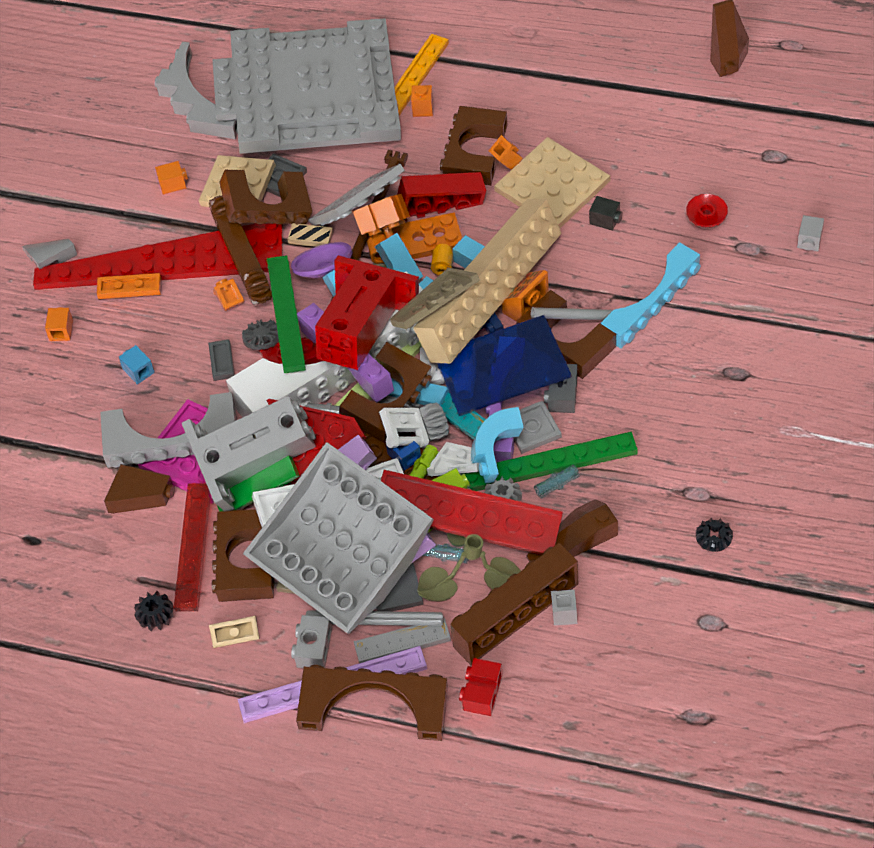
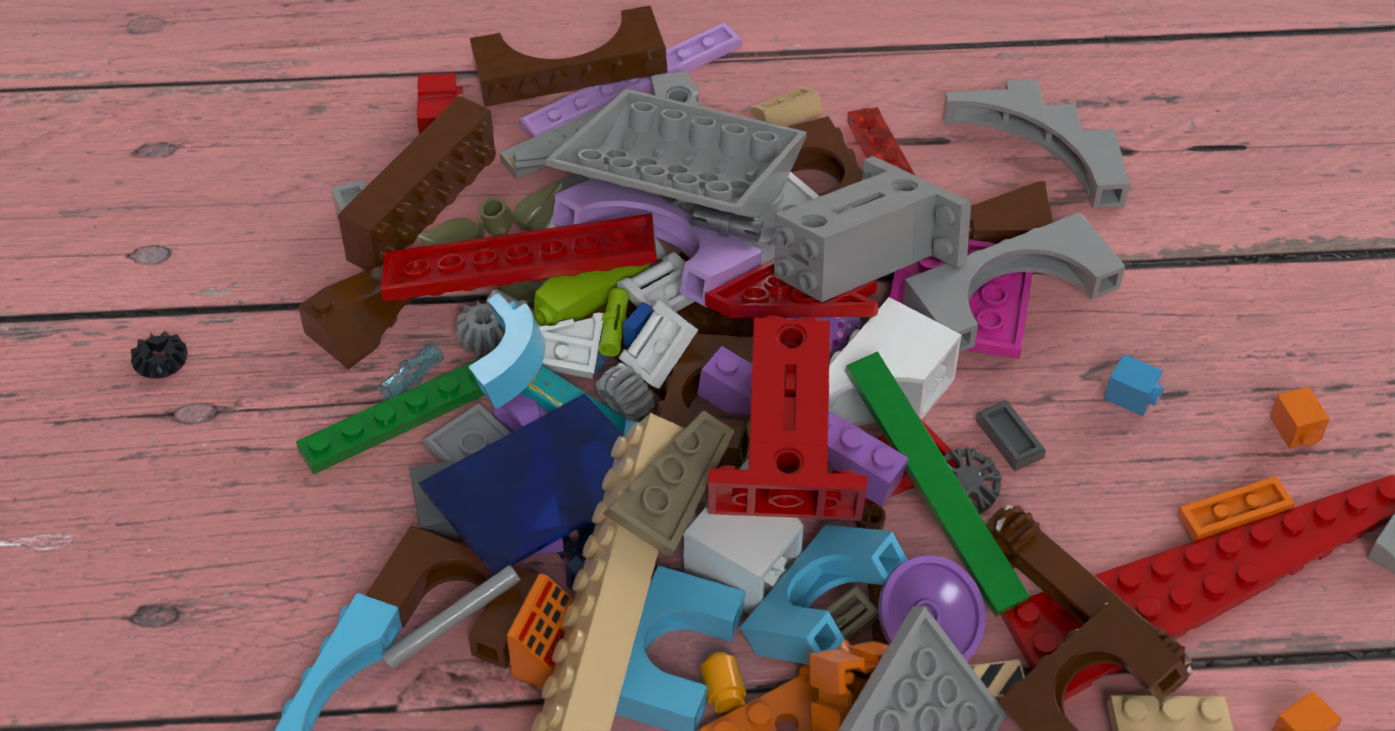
camera: 155 degrees right, 5 degrees down
(78, 575) = (1020, 110): none -> light grey arch
(154, 611) = (899, 95): black gear -> none
(228, 293) = (1068, 531): orange bracket -> none

